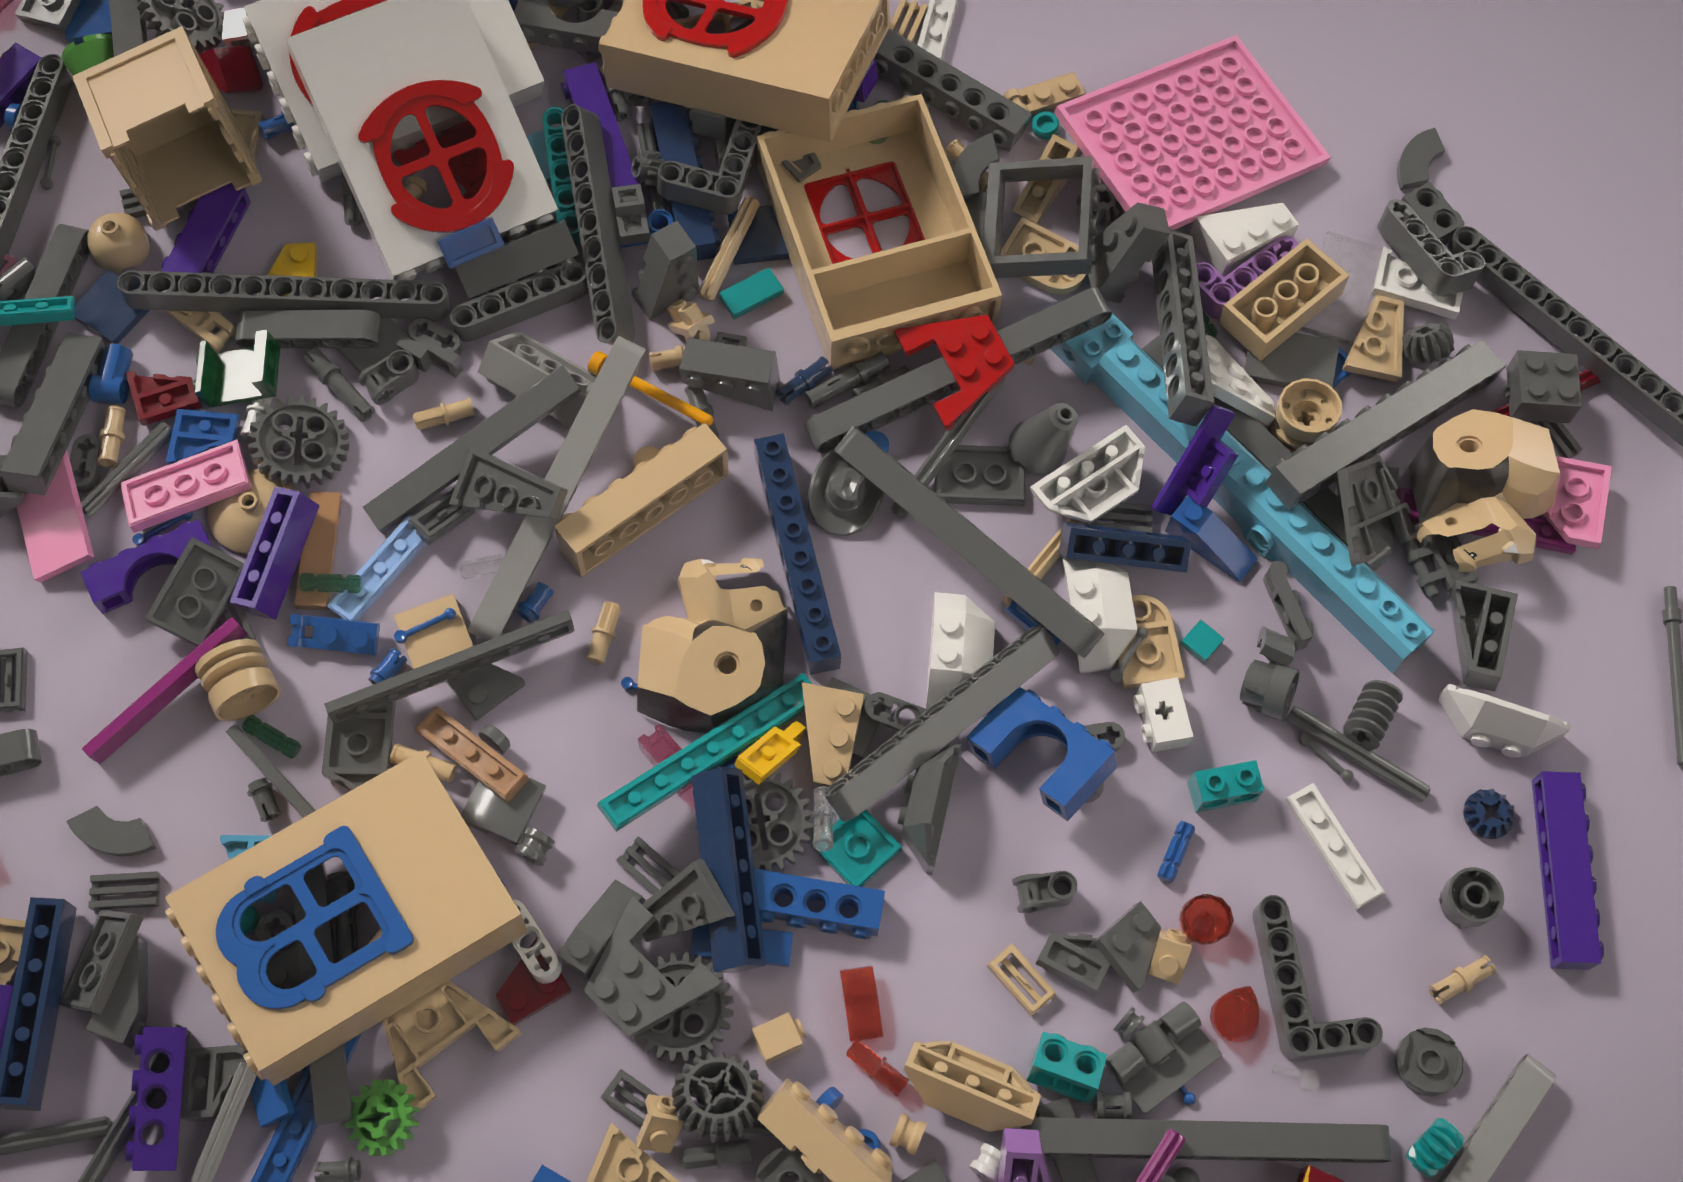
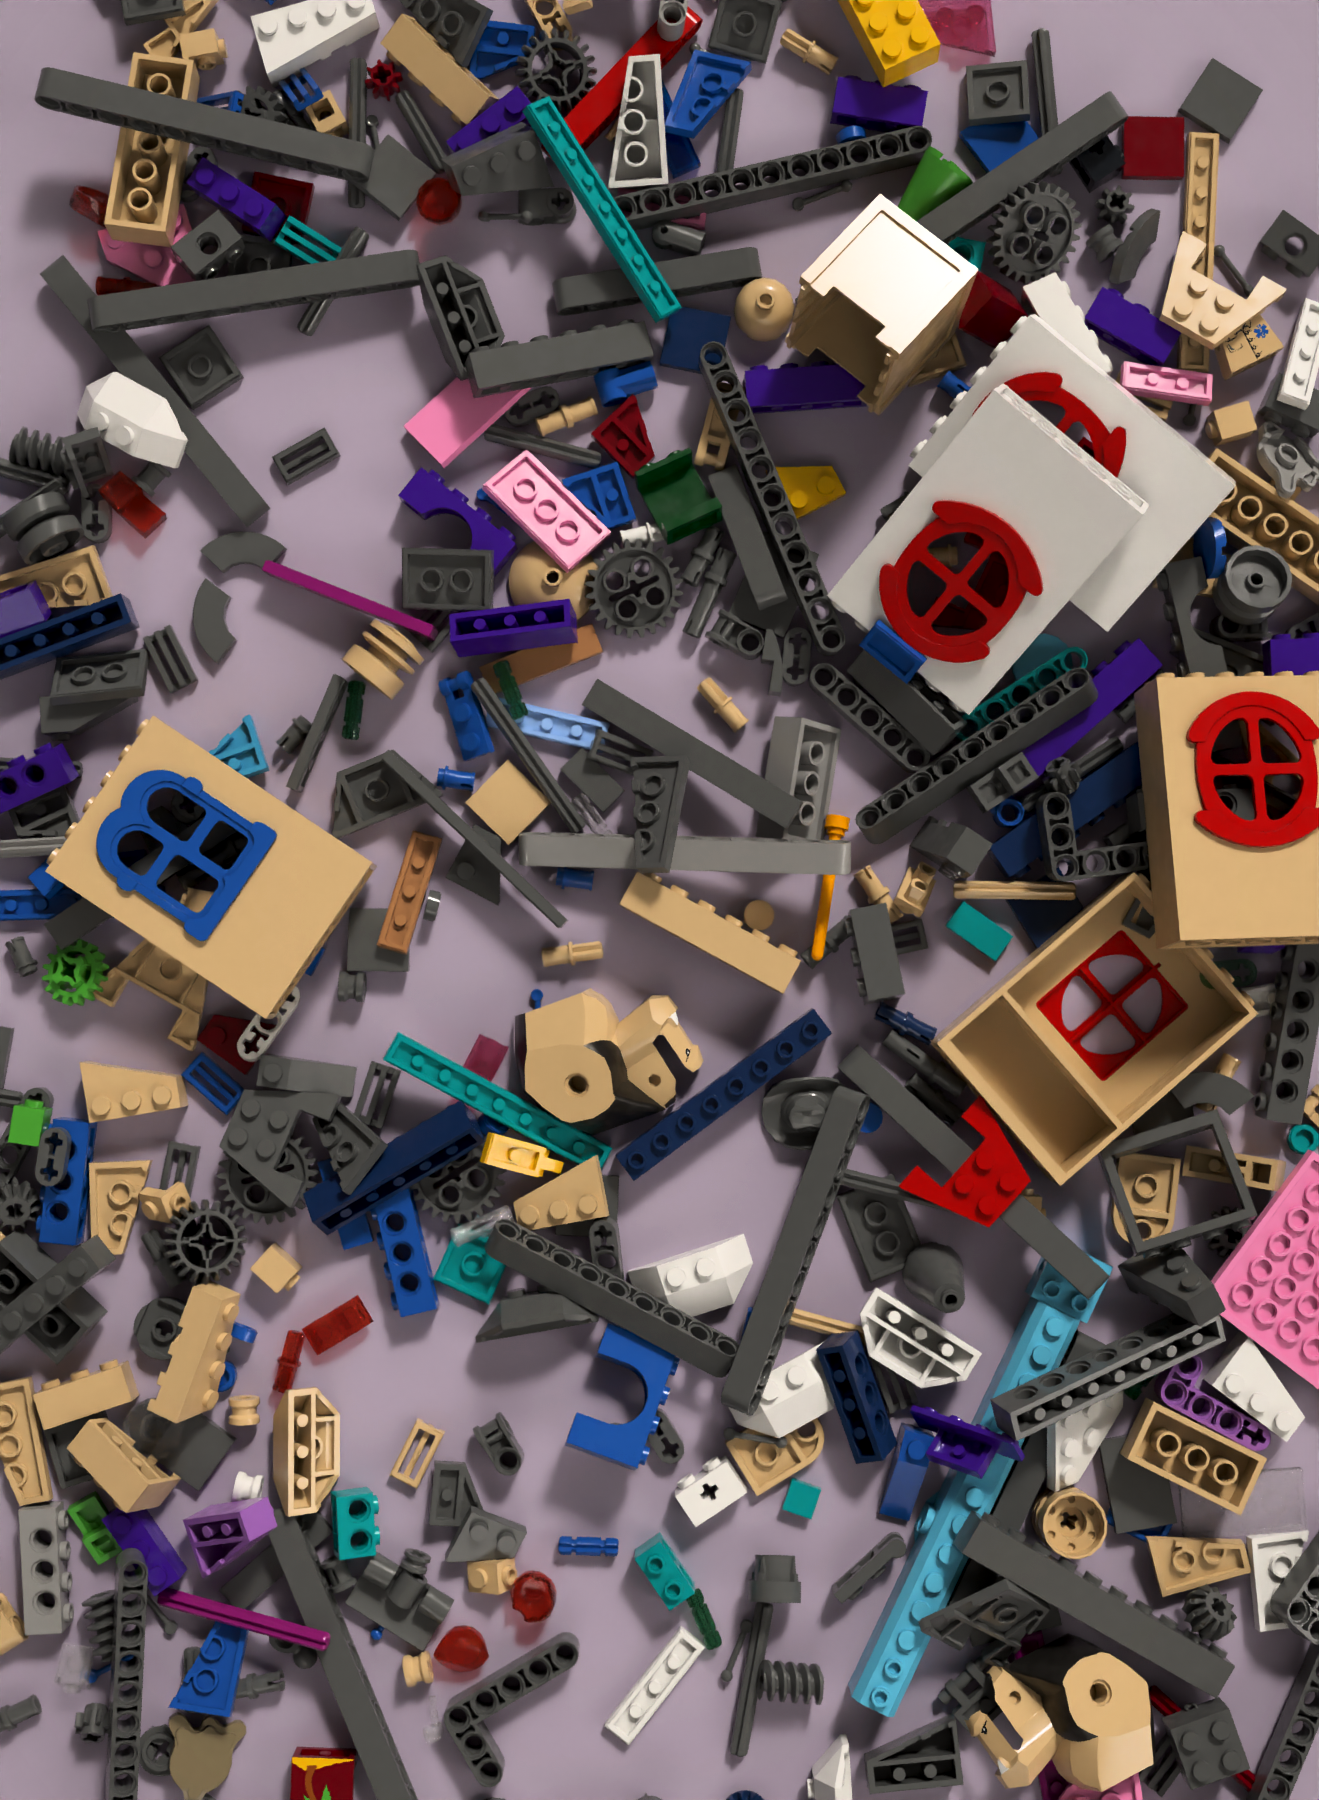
camera: 75 degrees right, 20 degrees up
(59, 775) = (242, 548): none -> dark grey tile
(303, 376) = (702, 556): none -> dark grey pin
(397, 593) = (528, 755): none -> dark grey axle
(401, 636) = (489, 776): blue hinge -> none
(444, 770) = (385, 853): tan pin -> none
(451, 550) = (592, 780): none -> dark grey tile
(531, 1112) = (127, 1091): none -> tan wedge
(569, 1039) = (202, 1057): none -> blue tile
(1239, 1066) = (418, 1669): none -> tan wheel
(1276, 646) = (819, 1572): dark grey slope -> none
(1288, 773) = (704, 1620): none -> clear green axle

